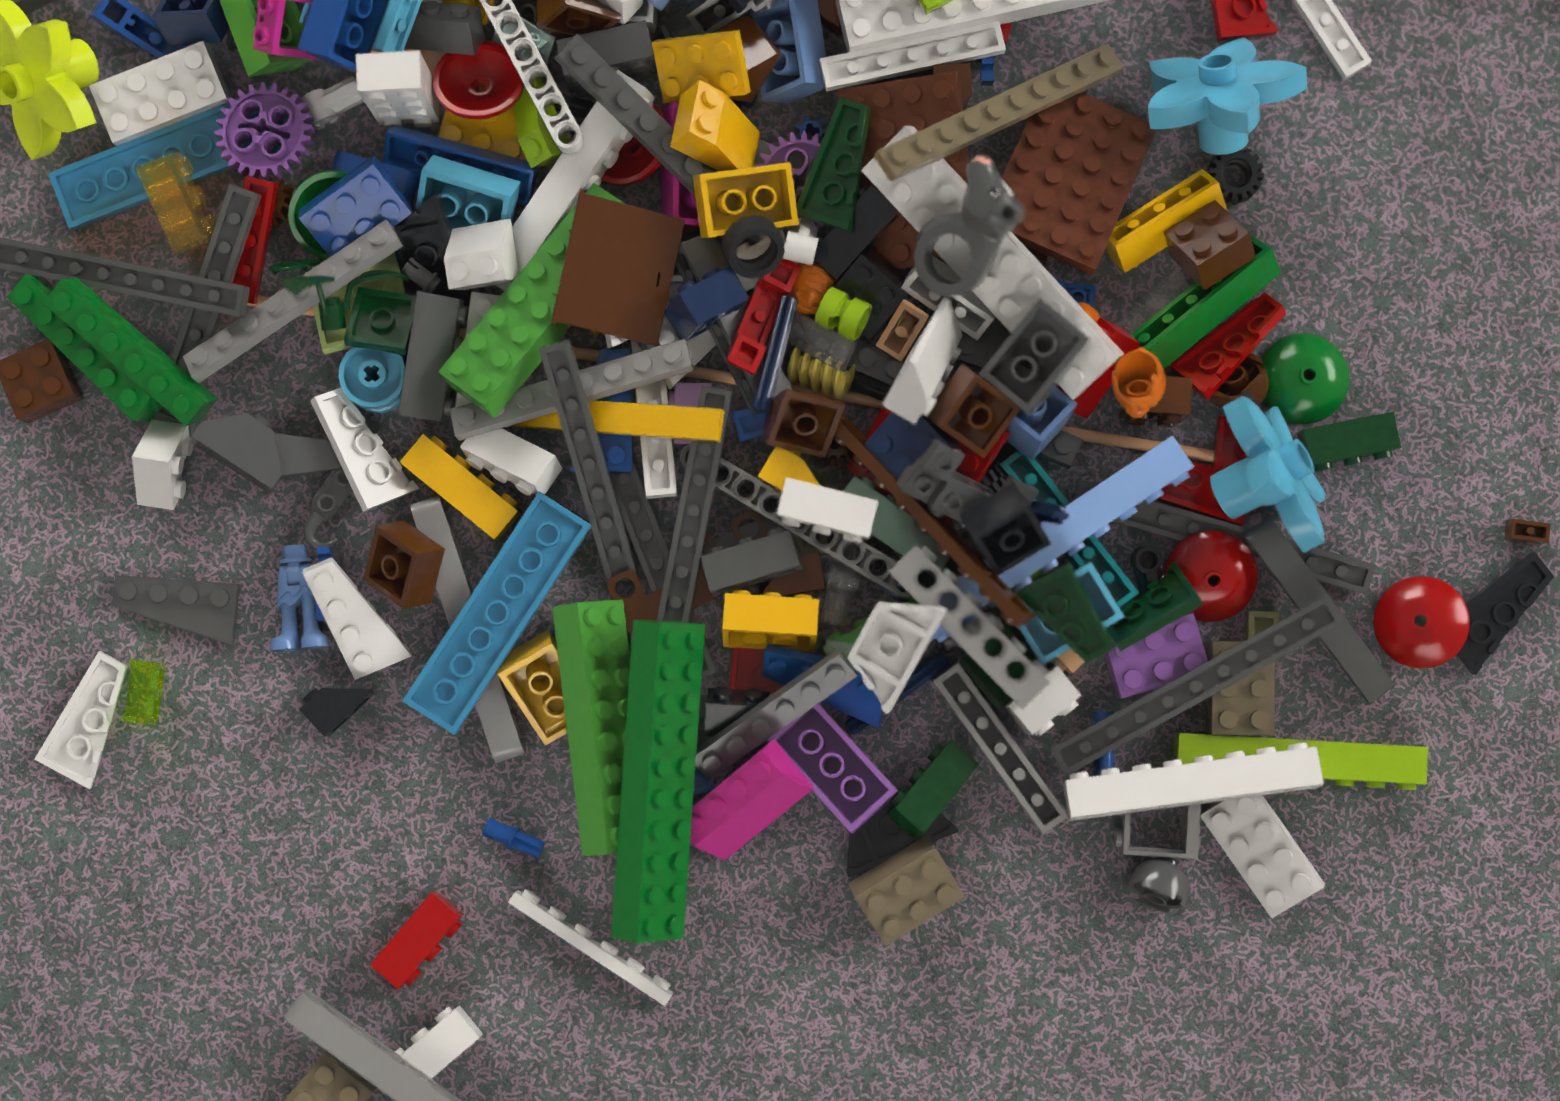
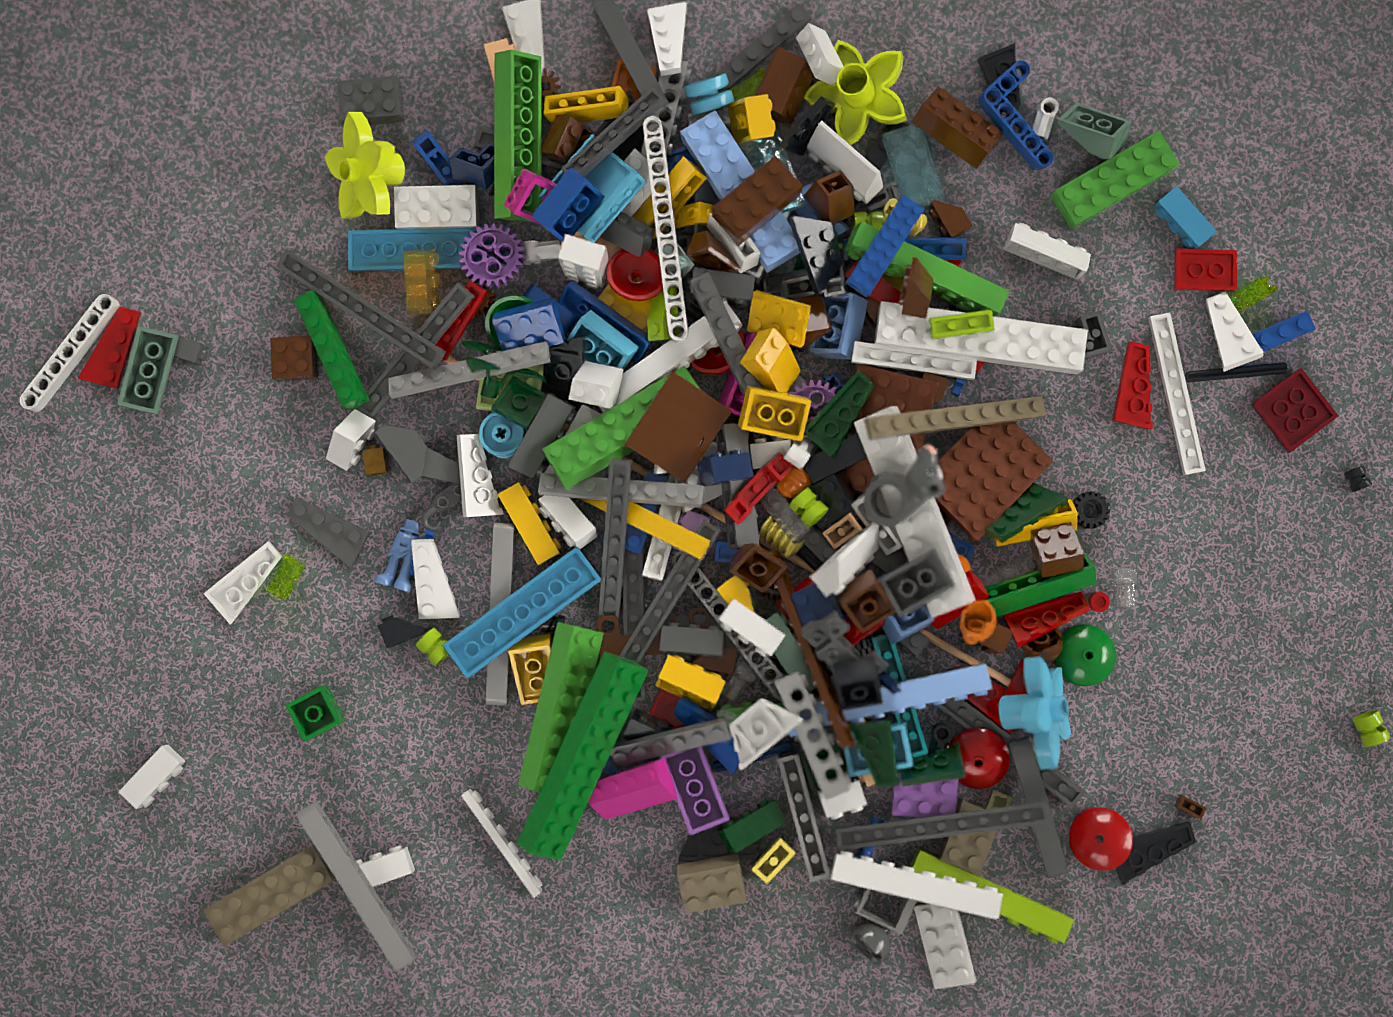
camera: 25 degrees right, 0 degrees up
(59, 1045) = (152, 777): none -> white brick
(130, 350) = (357, 362): green brick -> none
(209, 481) = (375, 461): none -> pearl gold brick
(257, 866) = (315, 713): none -> green brick
(389, 708) = (433, 645): none -> lime wheel
(403, 564) = (476, 560): reddish brown brick -> none
(418, 940) = (396, 797): red brick -> none
(421, 276) = (554, 383): dark grey pin -> none
(513, 838) = (479, 755): blue axle -> none
(539, 620) = (546, 627): none -> black wheel
(762, 264) = (770, 457): black tyre -> none
(774, 354) = (756, 516): dark blue axle -> none
(979, 824) = (773, 859): none -> light yellow brick
(1145, 207) = (1025, 511): none -> dark green wing
(1220, 93) = (1100, 456): medium azure plant -> none
(1294, 297) = (1098, 602): none -> red tile
(1319, 256) = (1124, 584): none -> clear piece
(1351, 440) = (1099, 707): dark green brick -> none

